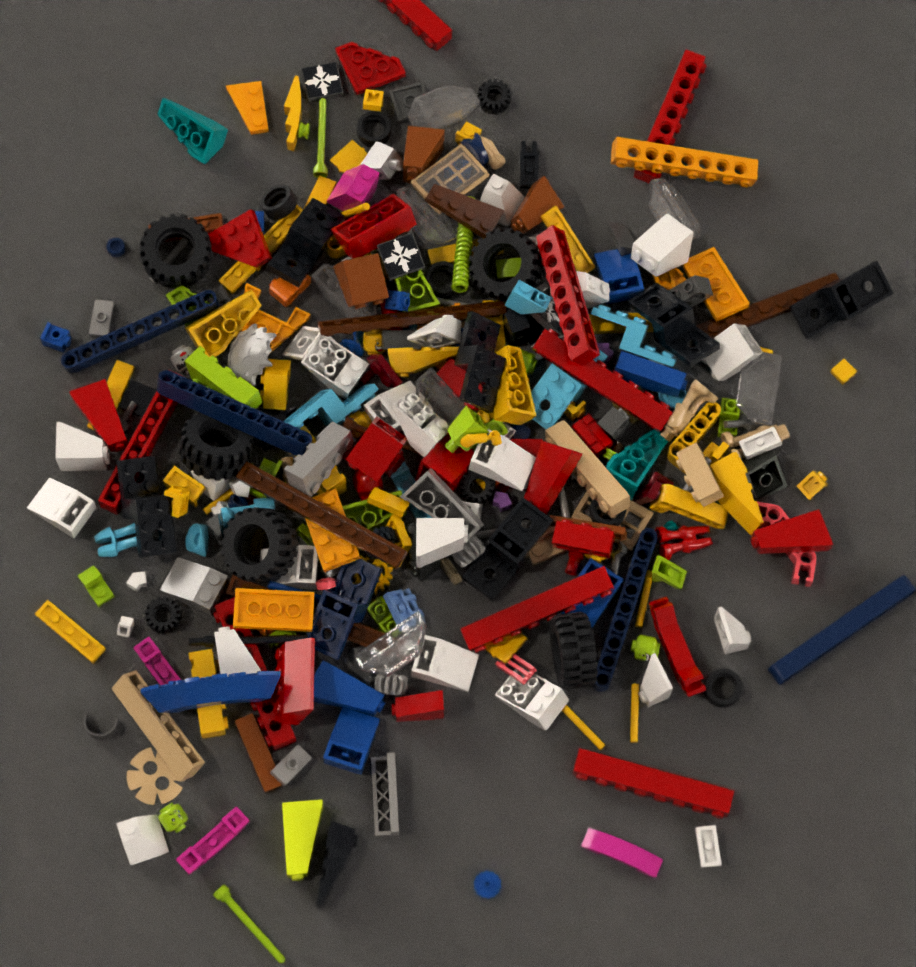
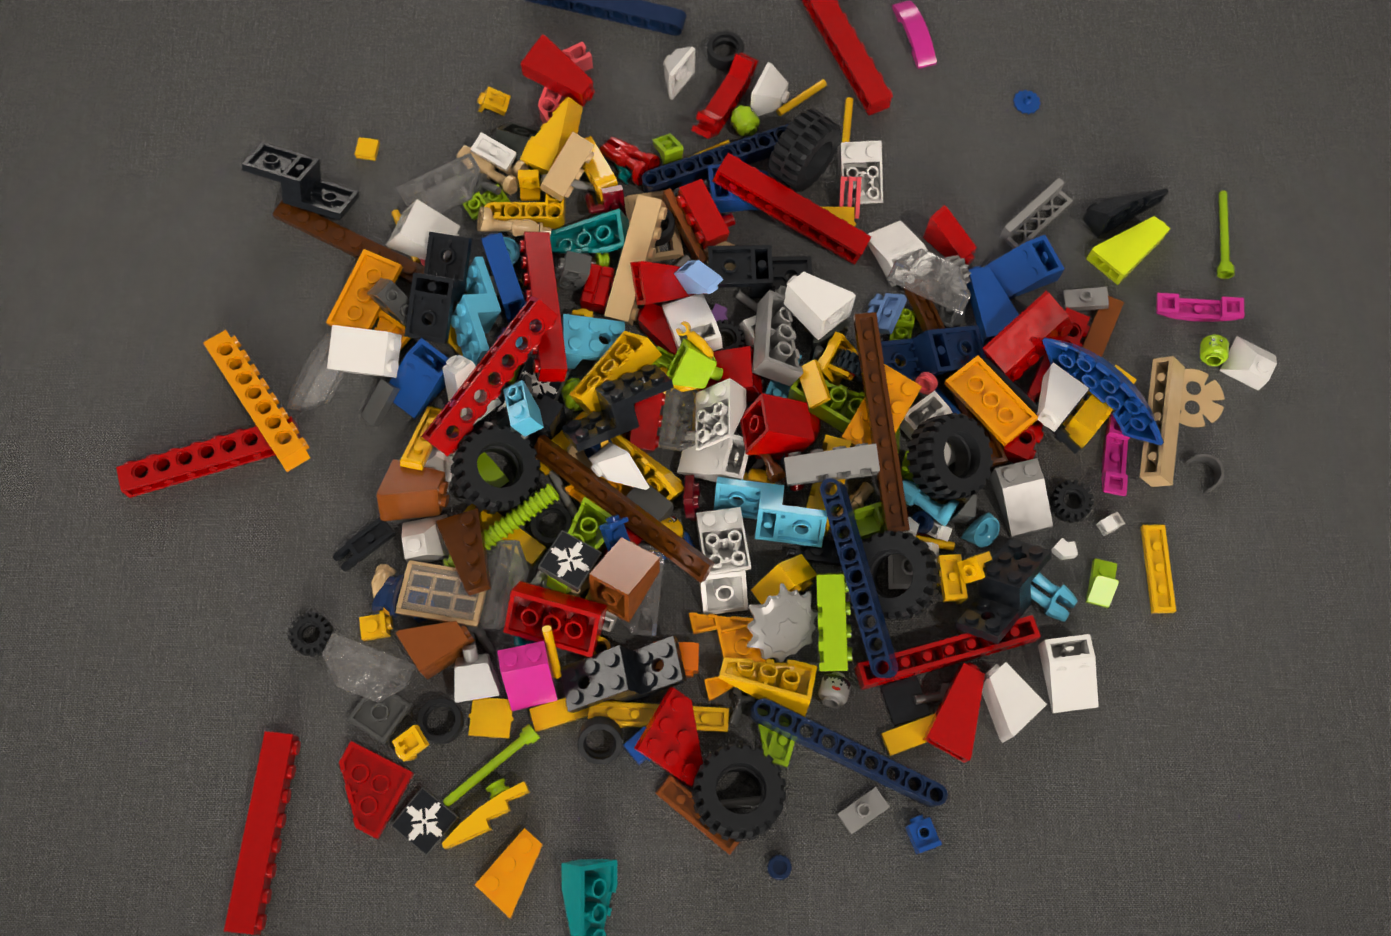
camera: 130 degrees left, 0 degrees up
(530, 486) = (698, 278): none -> light blue slope

